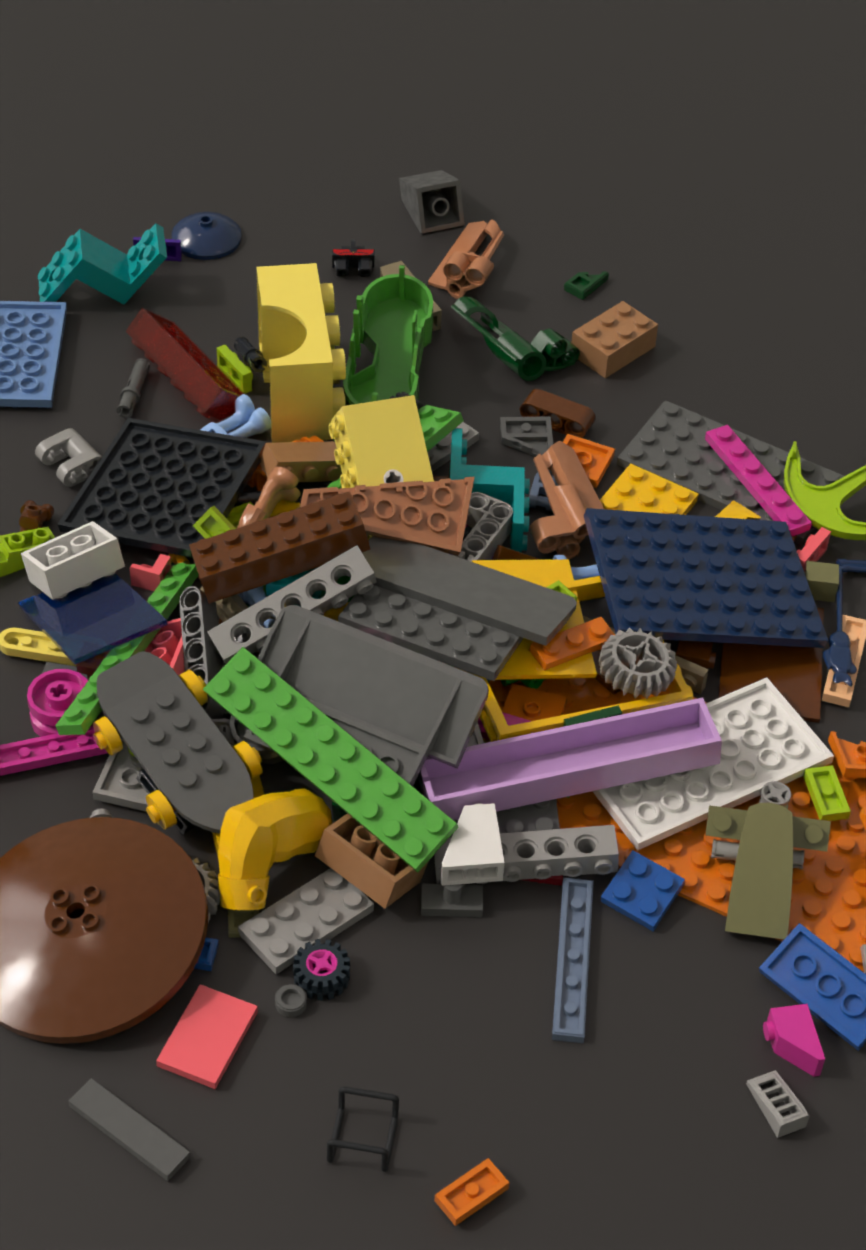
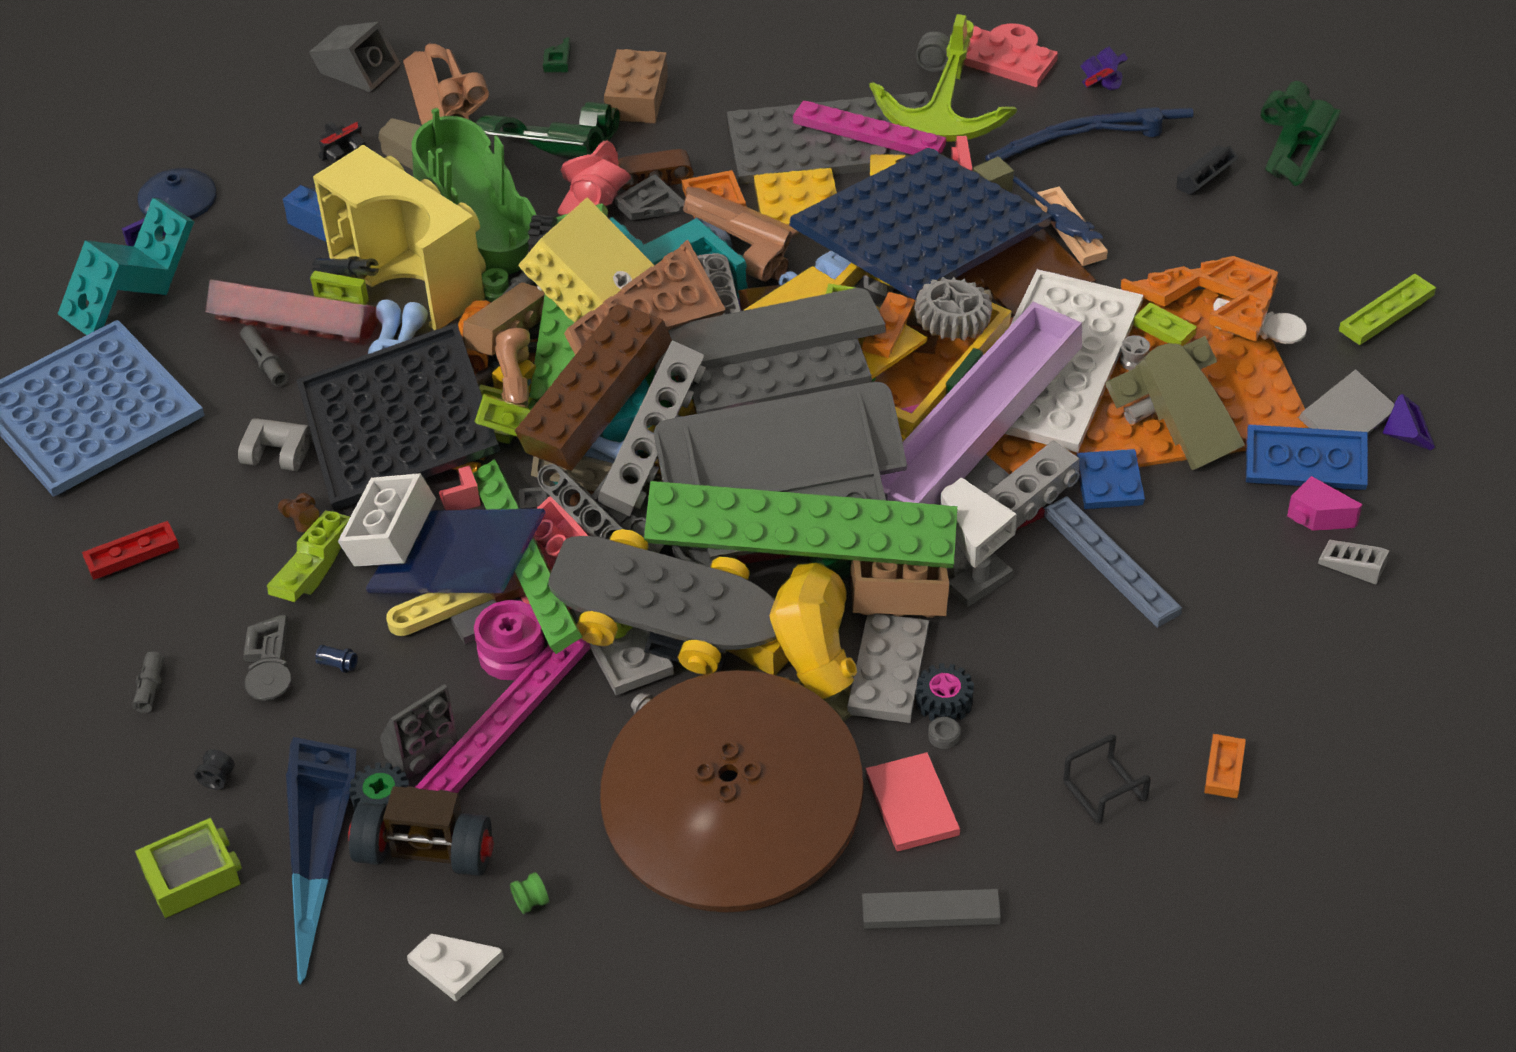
camera: 35 degrees left, 0 degrees up
(493, 394) = (593, 177): none -> coral helmet

